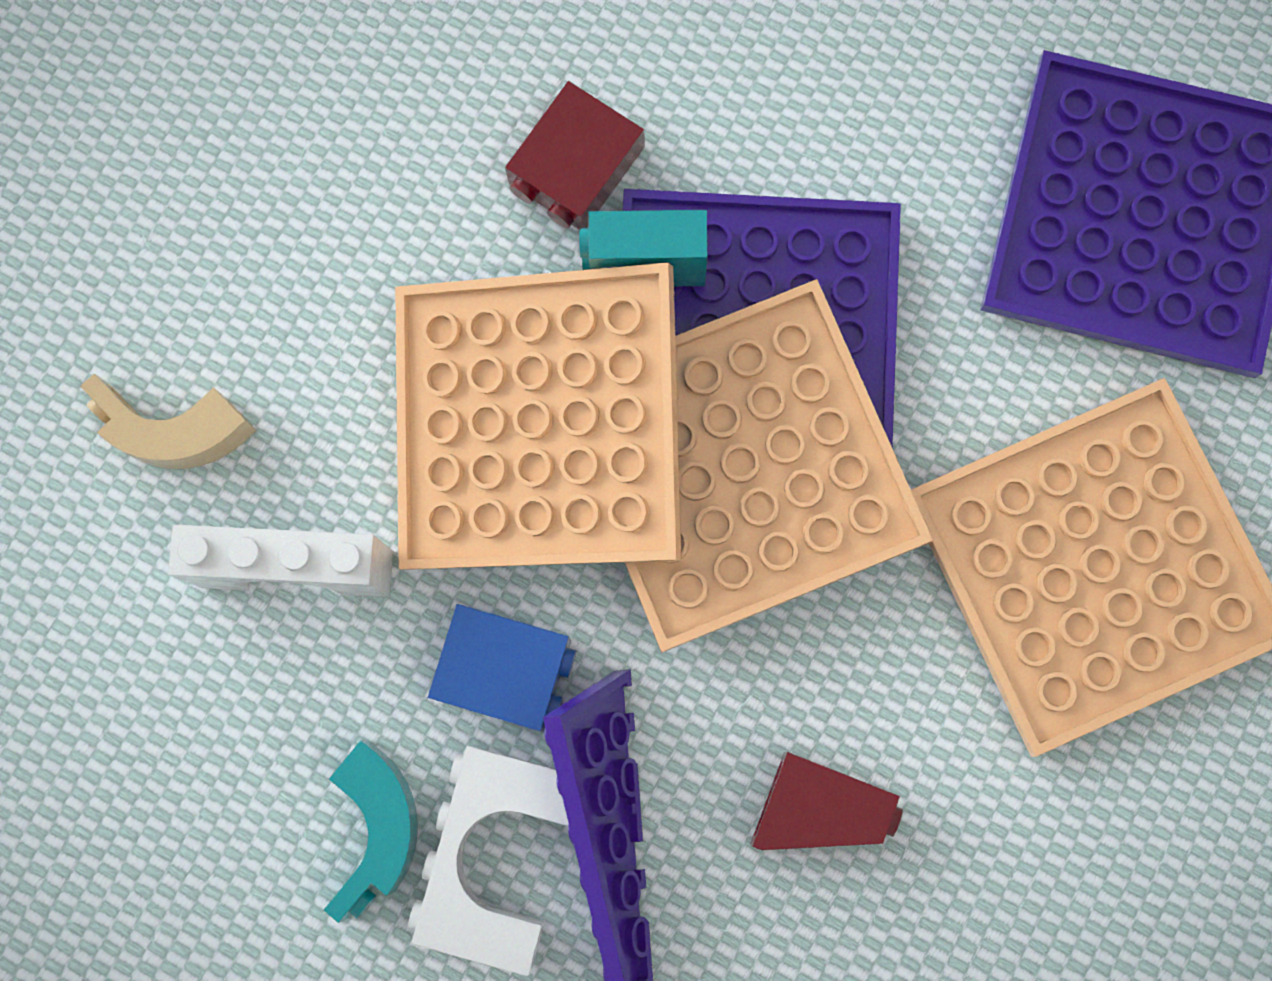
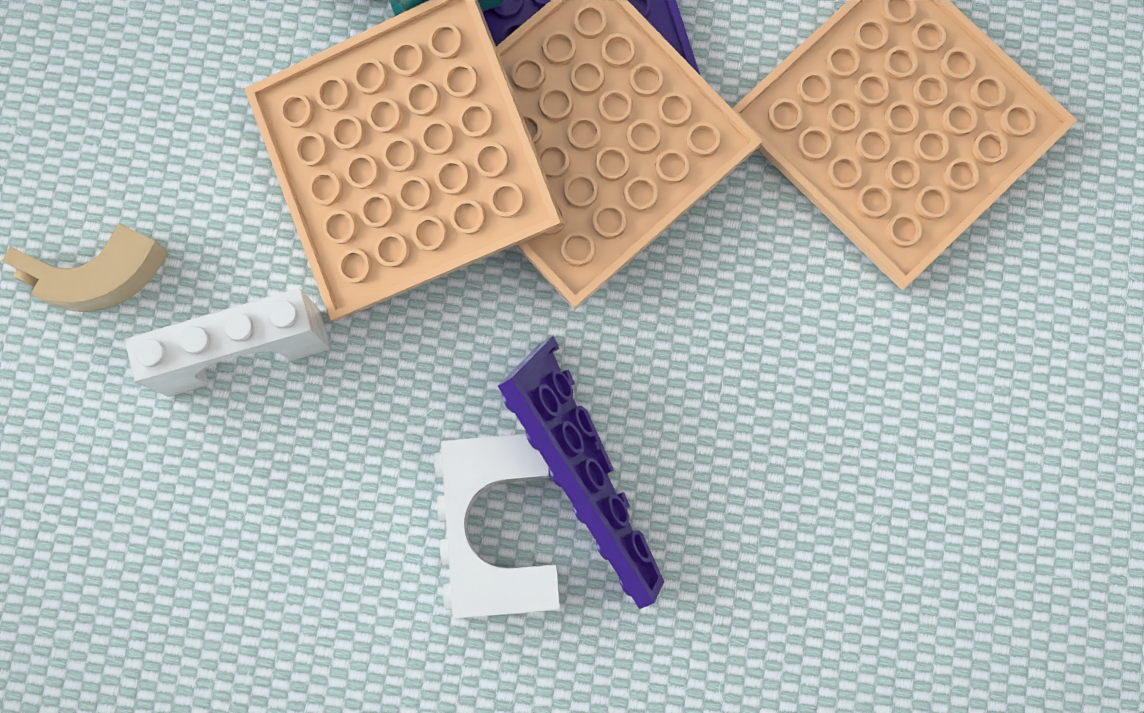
camera: 25 degrees left, 0 degrees up
(392, 828) = (401, 533): teal arch -> none
(501, 667) = (446, 370): blue brick -> none
(823, 809) = (751, 388): dark red slope -> none

